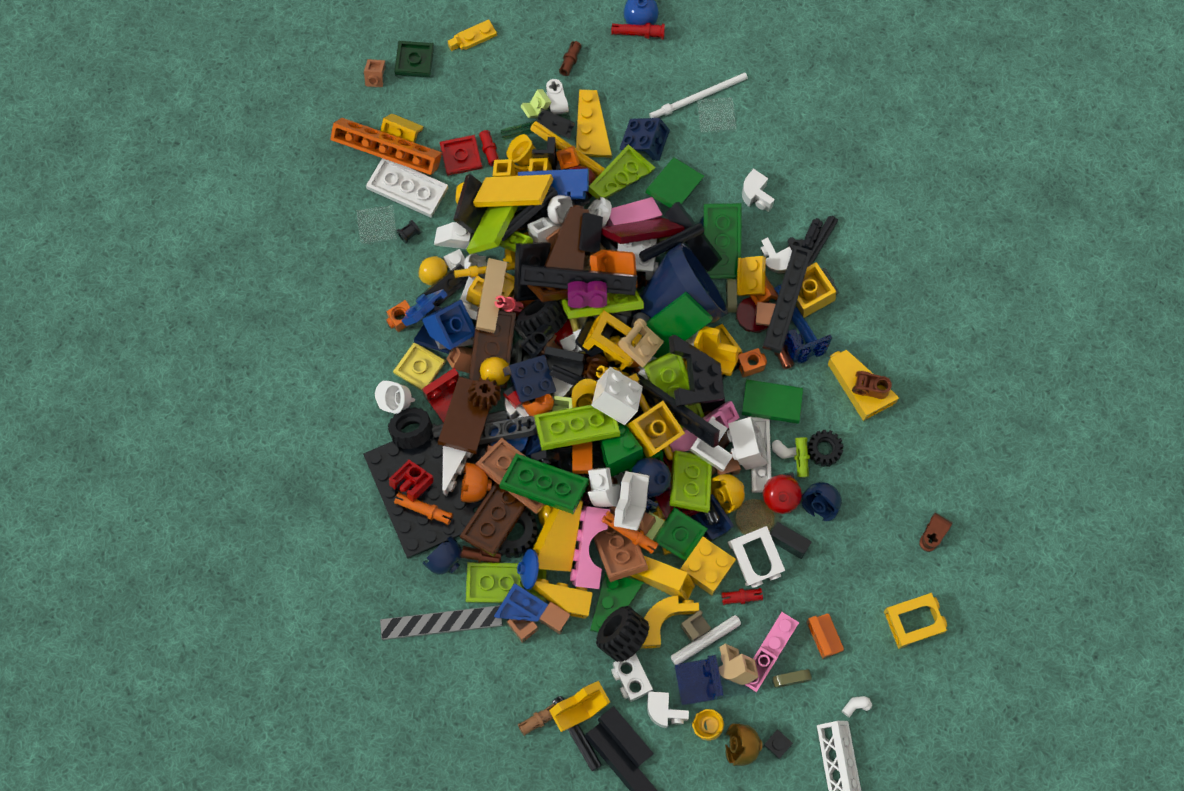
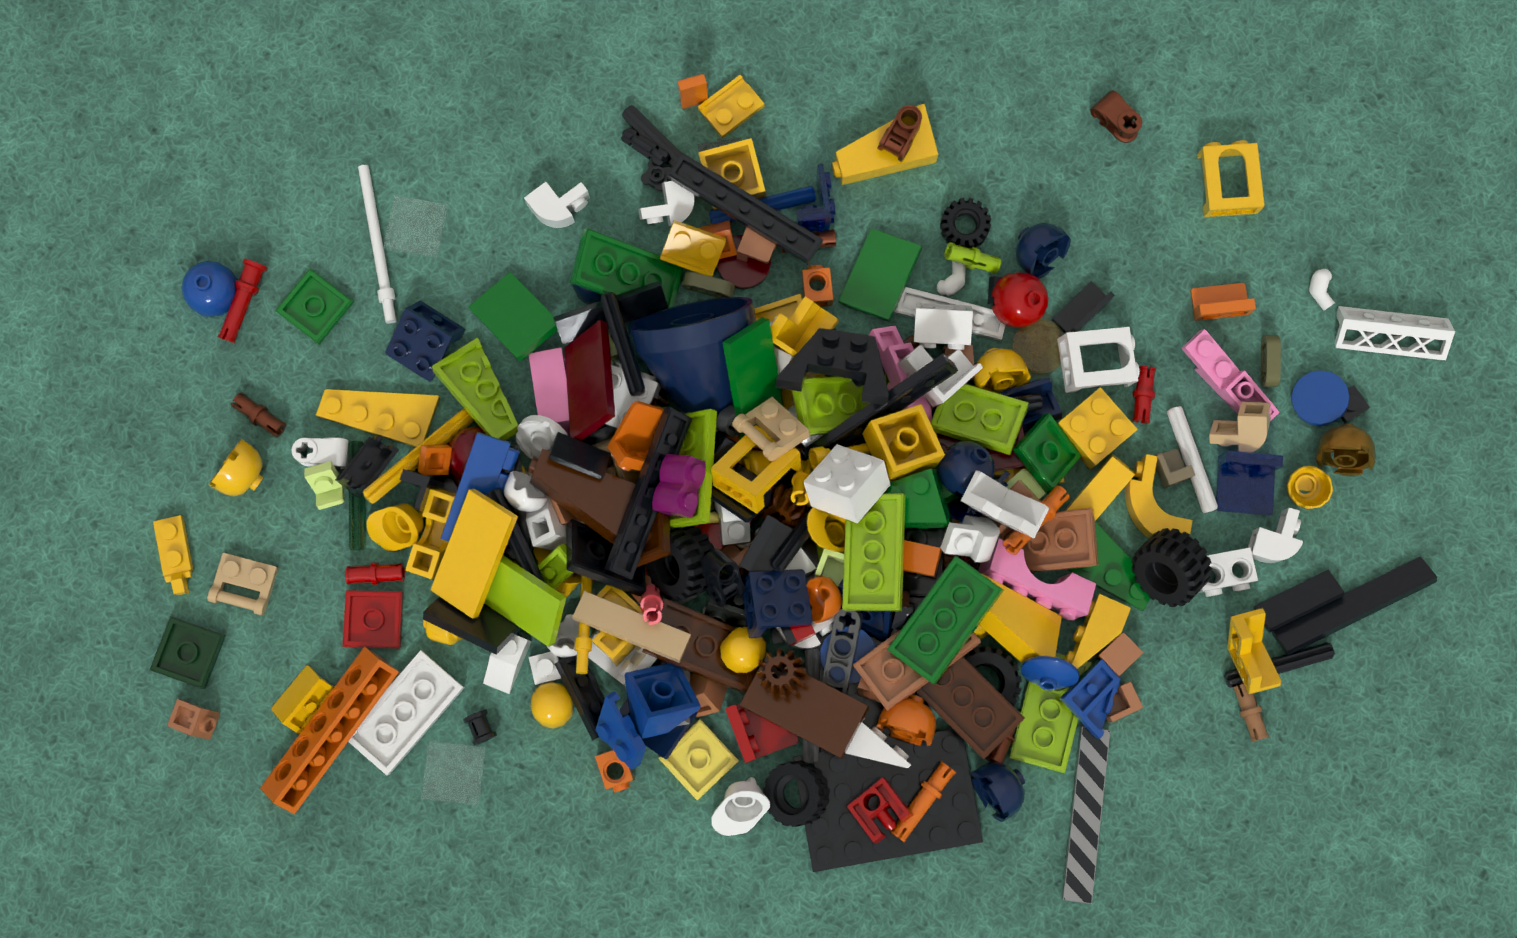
camera: 75 degrees left, 10 degrees up
(470, 78) = (245, 574): none -> tan plate
(531, 54) = (239, 471): none -> yellow cylinder
(647, 71) = (314, 306): none -> green tile
(775, 719) = (1320, 398): none -> blue tile
(857, 250) = (692, 91): none -> orange tile
(858, 281) = (731, 106): none -> yellow plate

